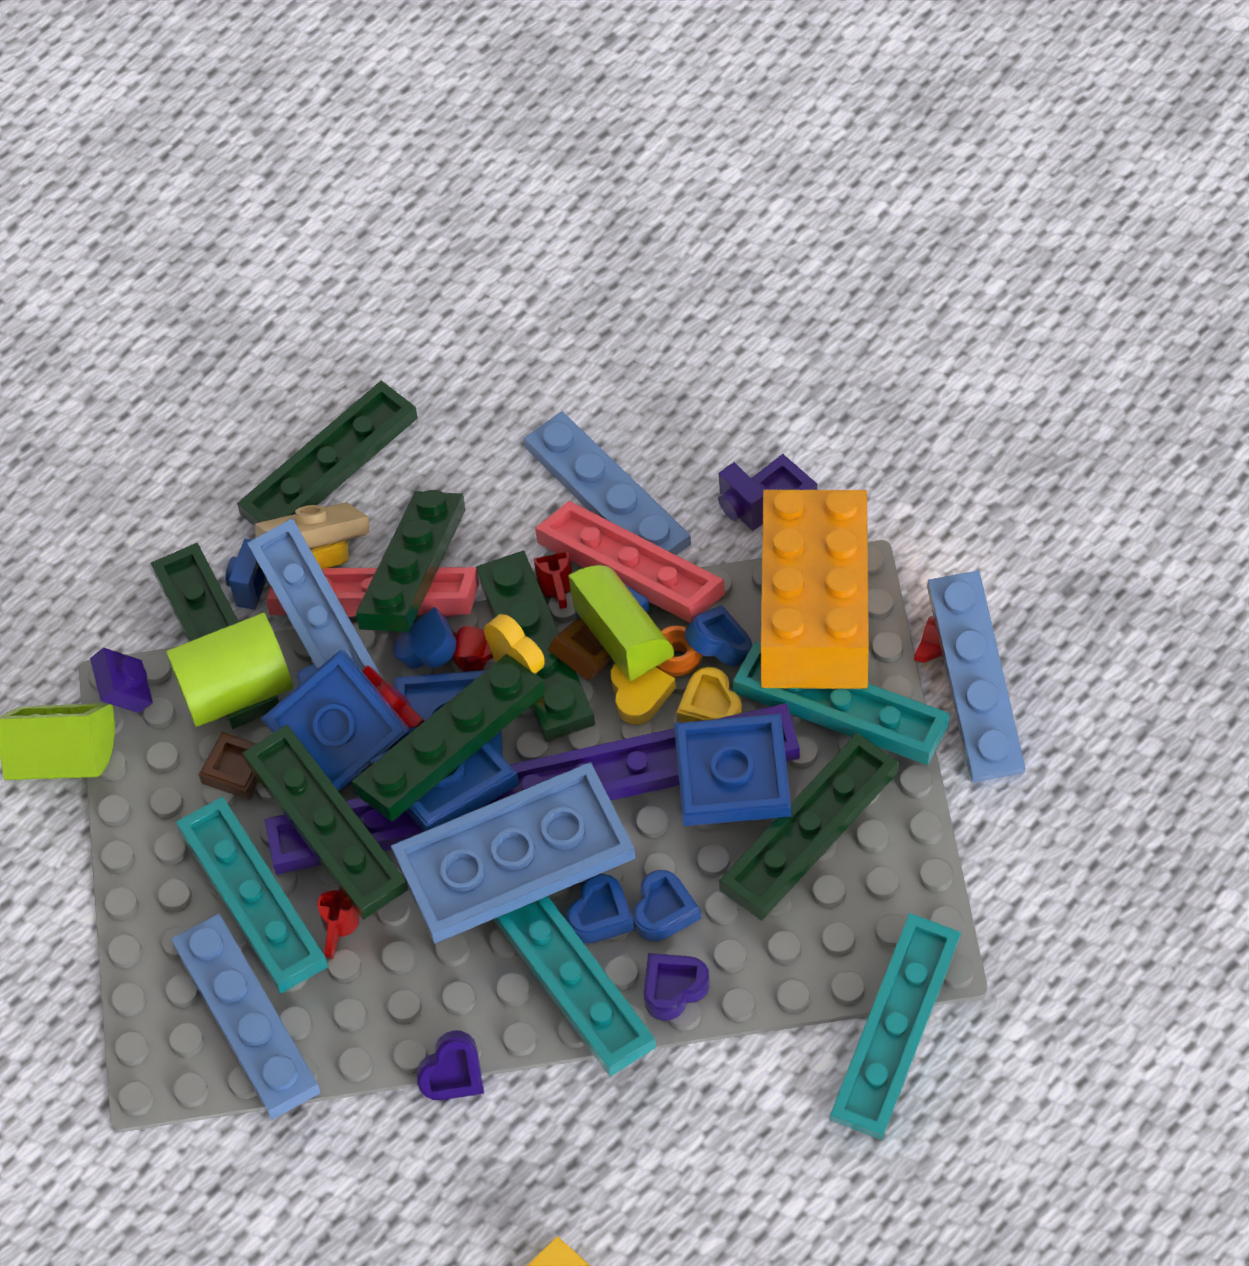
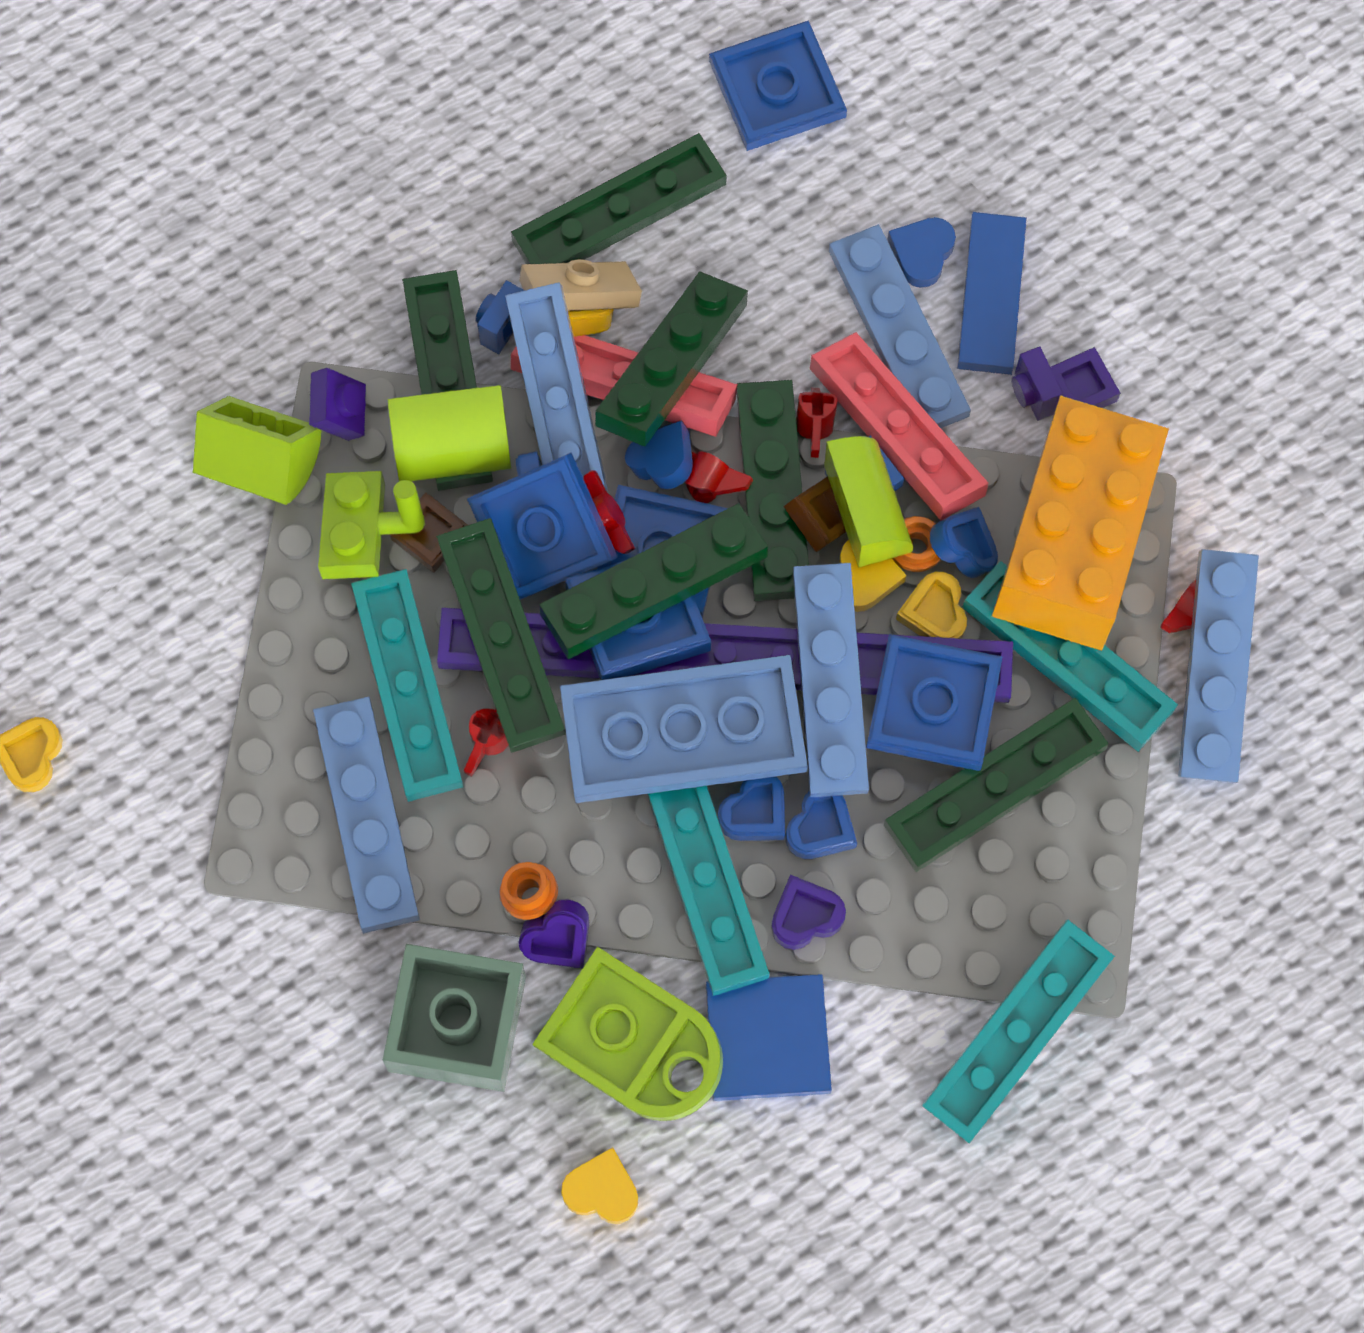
camera: 10 degrees right, 15 degrees up
(166, 771) = (356, 521): none -> lime plate
(377, 1161) = (454, 1017): none -> sand green brick
(413, 1033) = (518, 880): none -> orange plate
(439, 328) = (777, 85): none -> blue tile
(508, 638) = (744, 487): yellow tile -> none
(543, 1139) = (629, 1038): none -> lime tile
(608, 421) = (922, 249): none -> blue tile
(634, 778) = (830, 680): none -> medium blue plate
(673, 1104) = (772, 1038): none -> blue tile
(679, 440) = (992, 293): none -> blue tile

